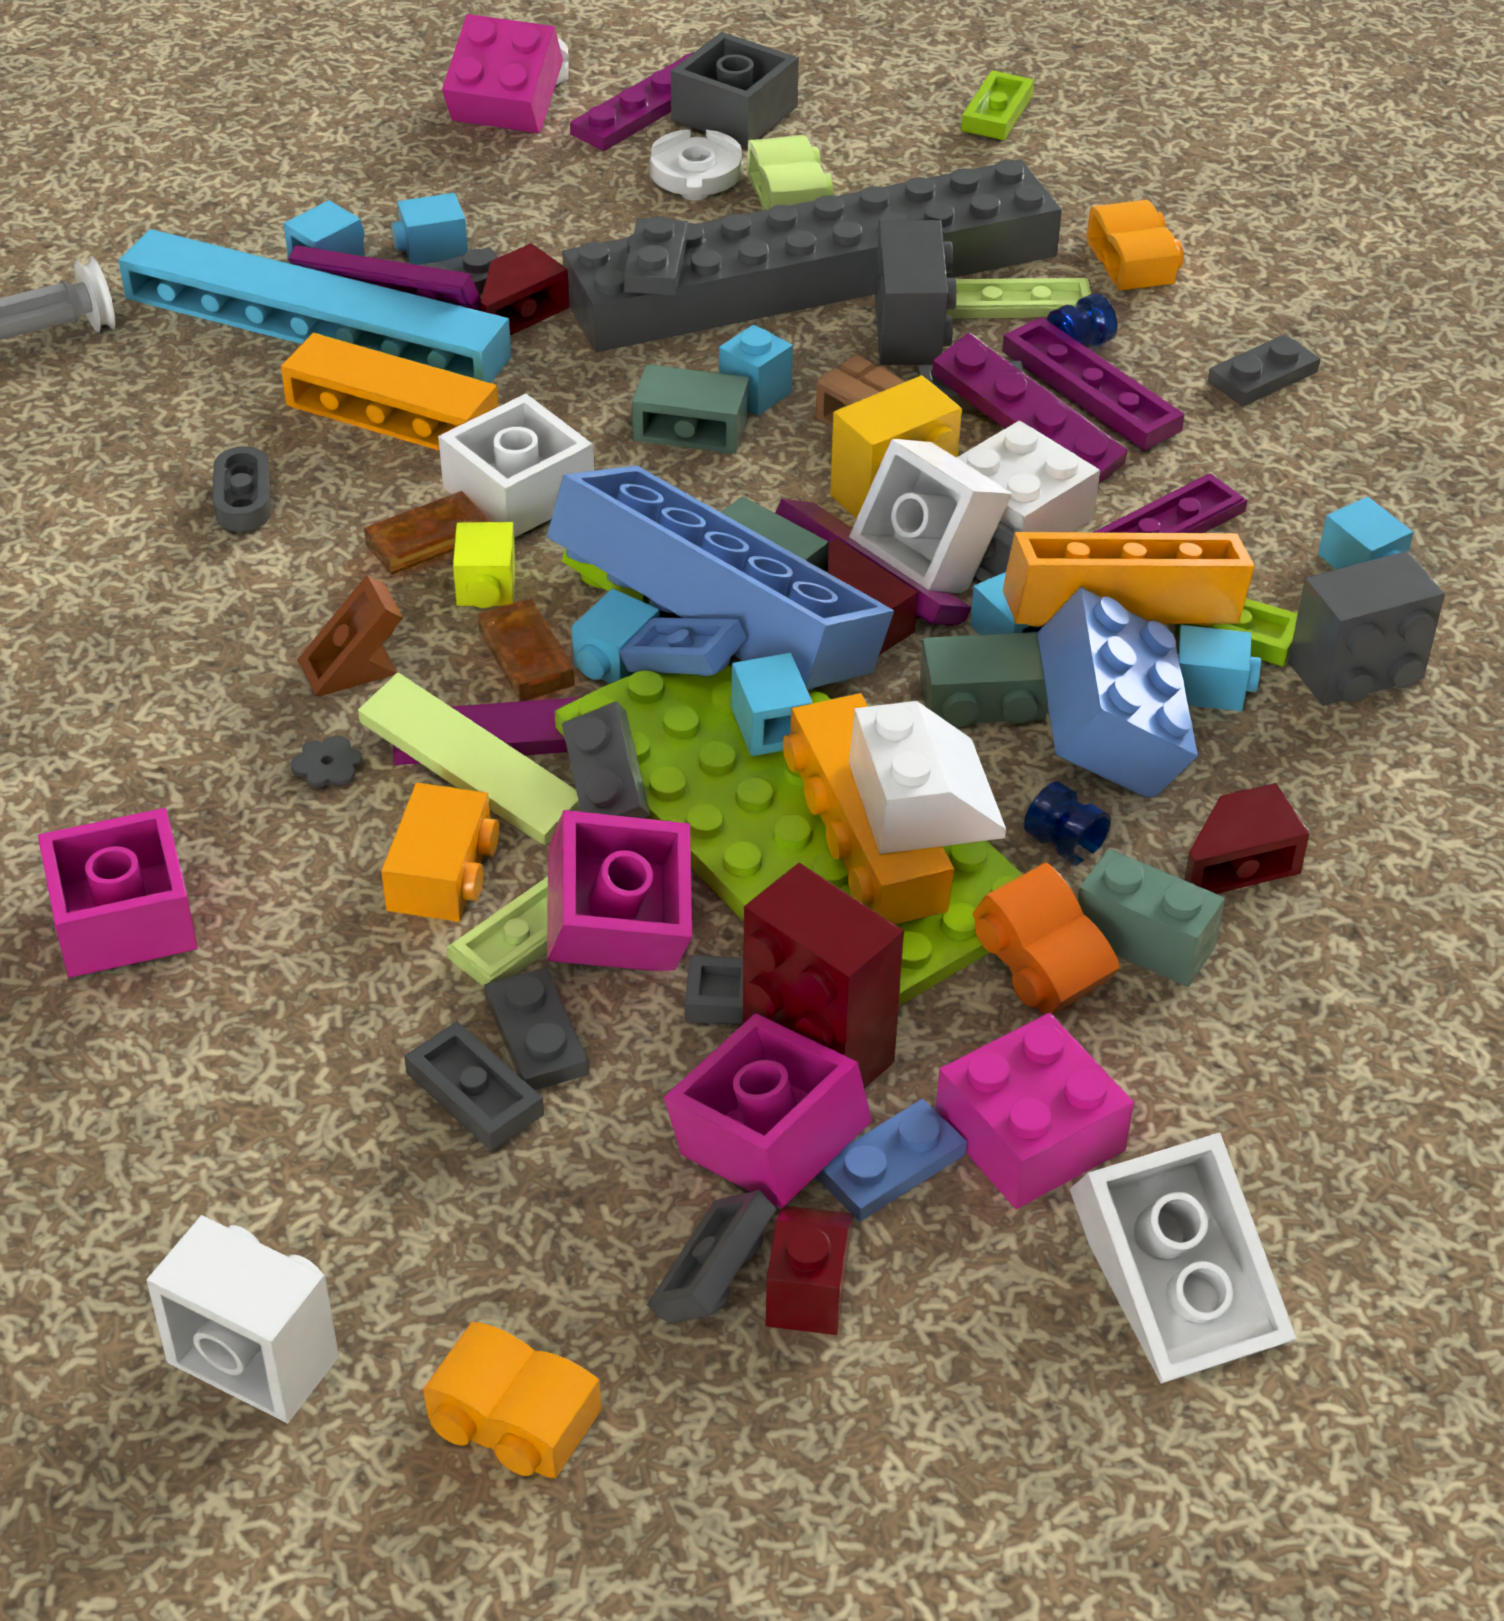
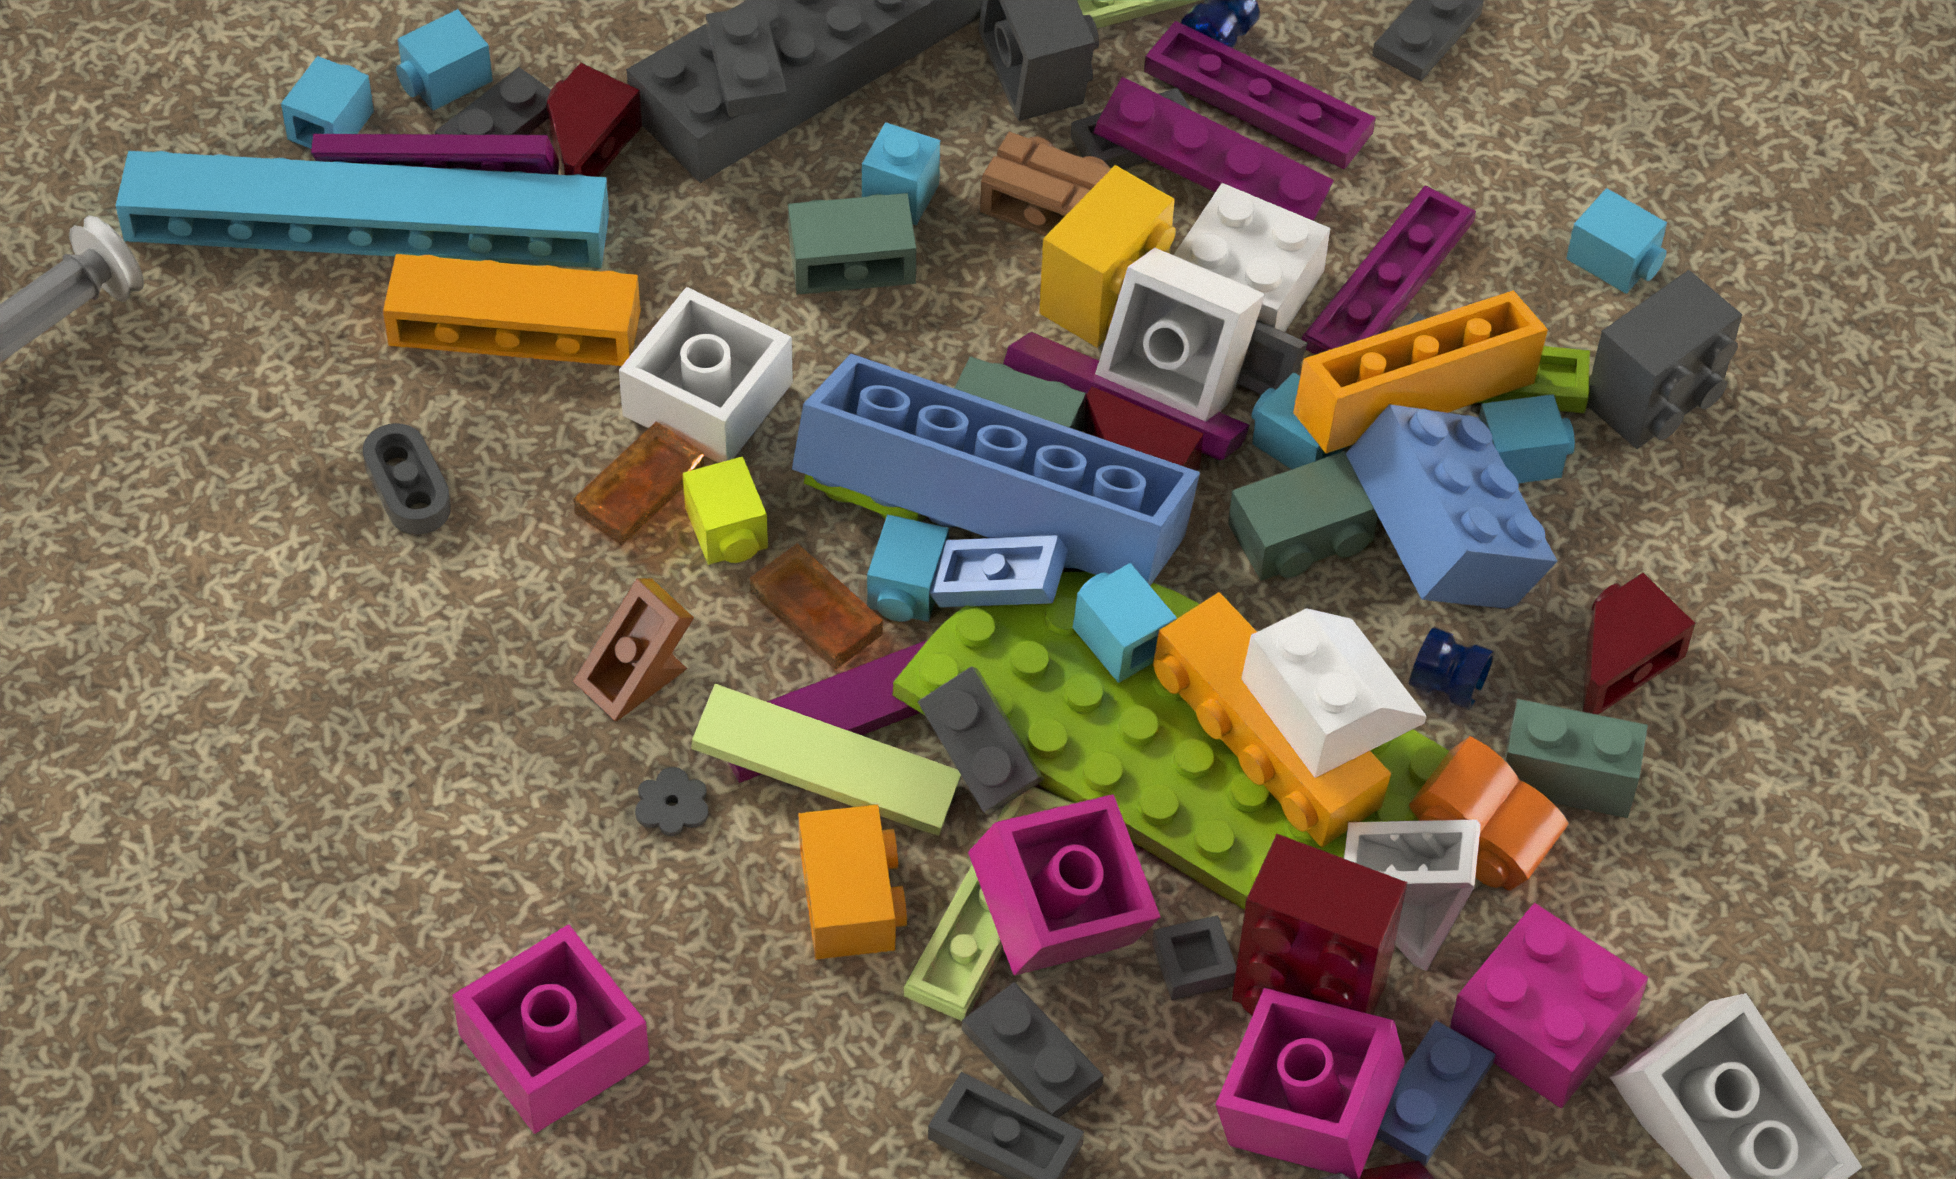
camera: 20 degrees left, 10 degrees up
(948, 969) = (1440, 871): none -> white slope

